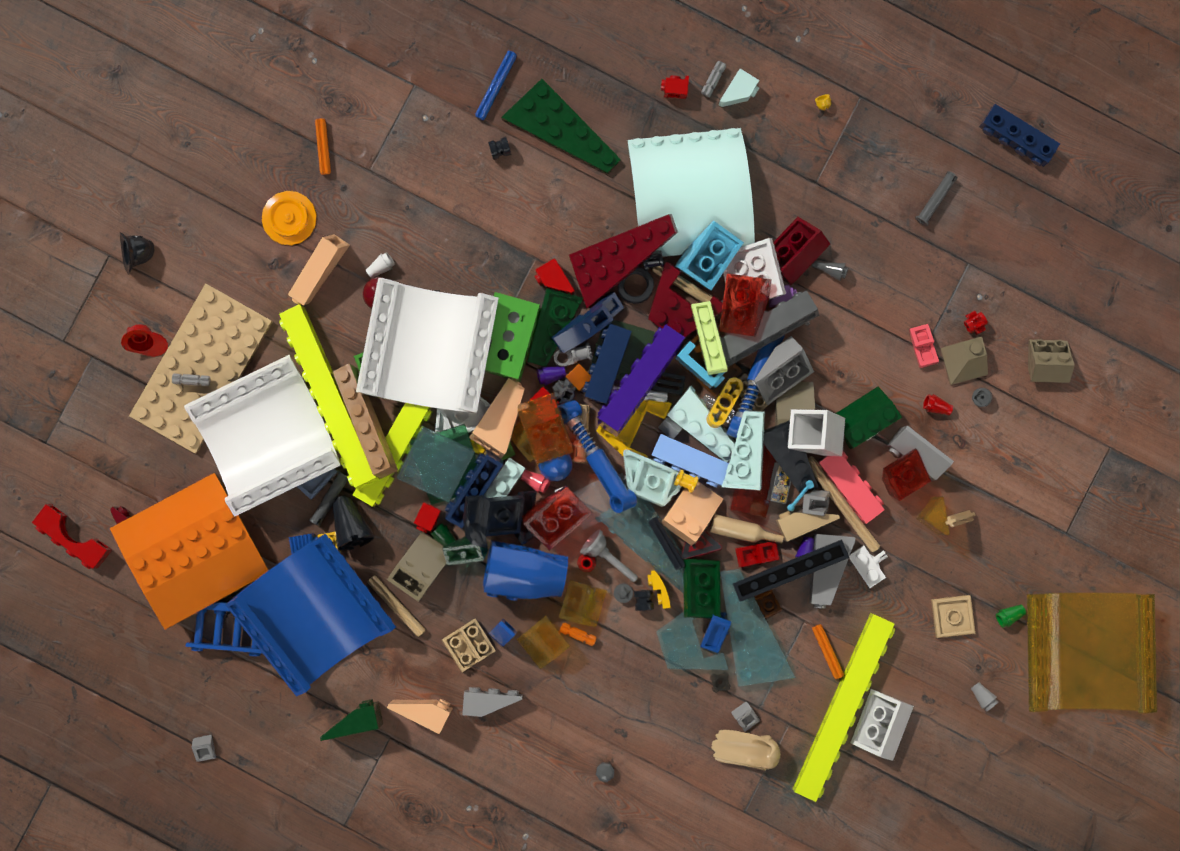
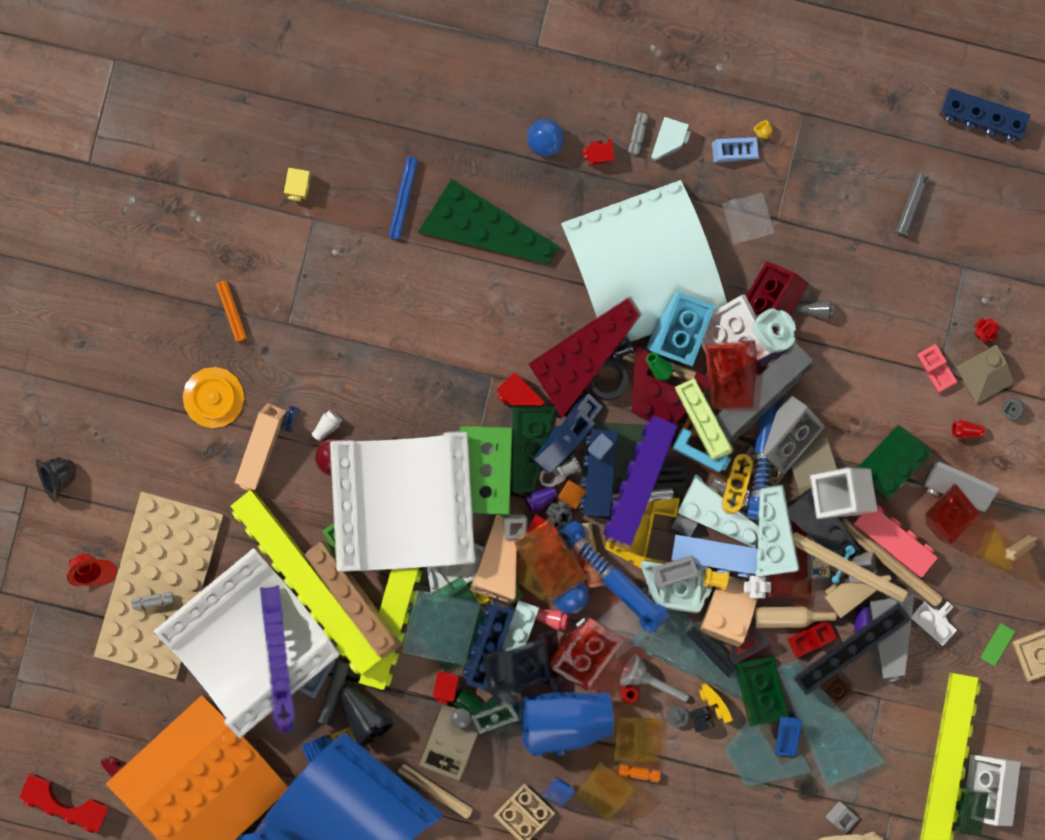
camera: 15 degrees left, 0 degrees up
(283, 454) = (277, 658): none -> dark purple piece
(350, 252) = (290, 418): none -> dark blue piece
(406, 50) = (297, 184): none -> light yellow brick
(433, 547) = (461, 718): none -> dark grey tile
(499, 148) = (424, 266): black wheel -> none
(521, 392) = (515, 526): none -> light grey slope
(613, 340) = (600, 446): none -> sand blue slope
(631, 61) = (545, 137): none -> blue piece
(652, 465) = (675, 571): none -> light grey tile
(682, 283) = (659, 366): none -> green cone
(720, 496) = (757, 587): none -> white gear
(778, 113) = (718, 156): none -> light blue slope
(781, 275) = (765, 335): none -> light aqua plate
(791, 175) = (748, 218): none -> clear hinge
(805, 499) = (849, 568): none -> tan axle
(827, 651) = (914, 726): orange axle -> none
(859, 738) = (971, 811): none -> clear green slope
(918, 599) = (997, 644): none -> bright green sticker

